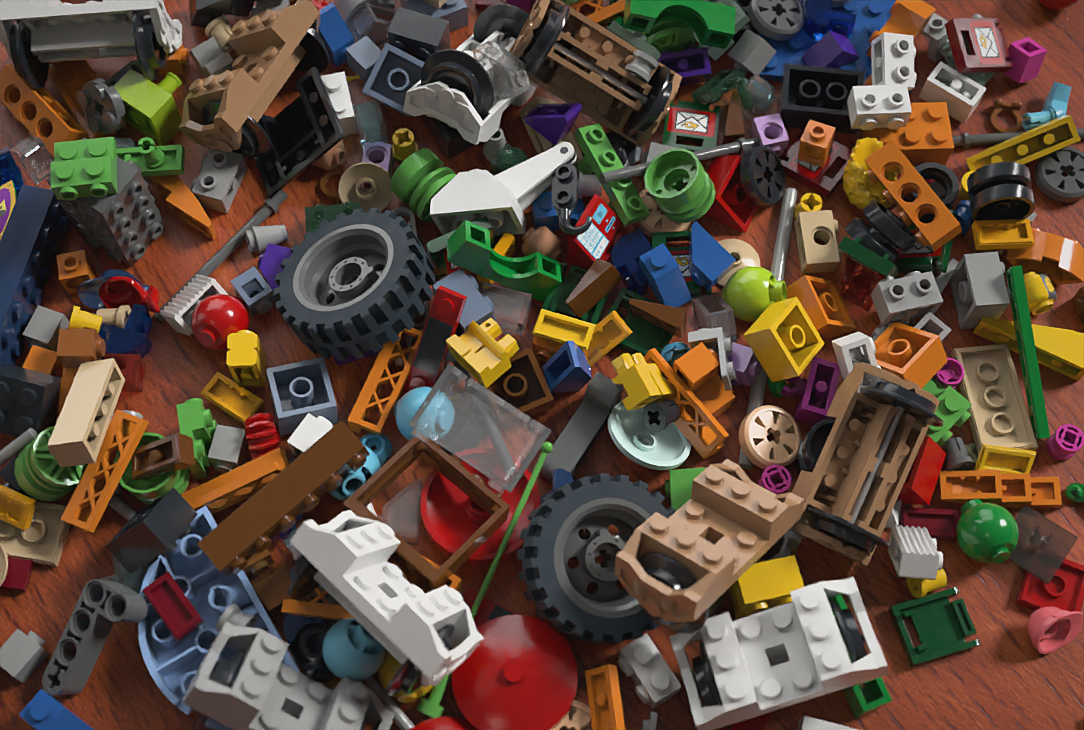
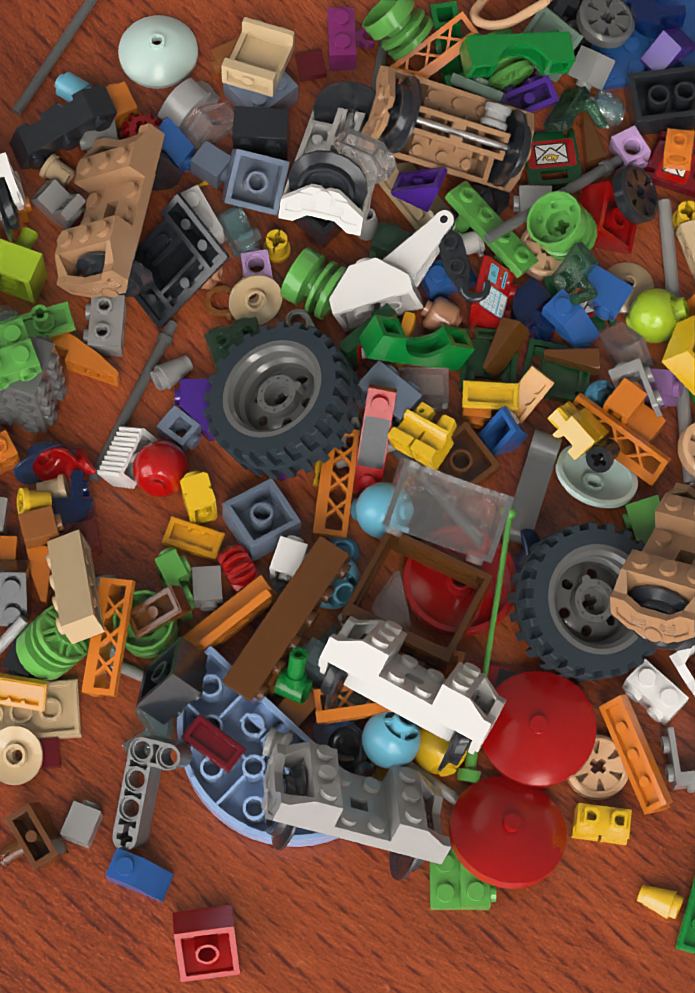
camera: 15 degrees left, 5 degrees up
(274, 562) = (293, 680): none -> green pin
(679, 231) = (574, 273): none -> clear green plate

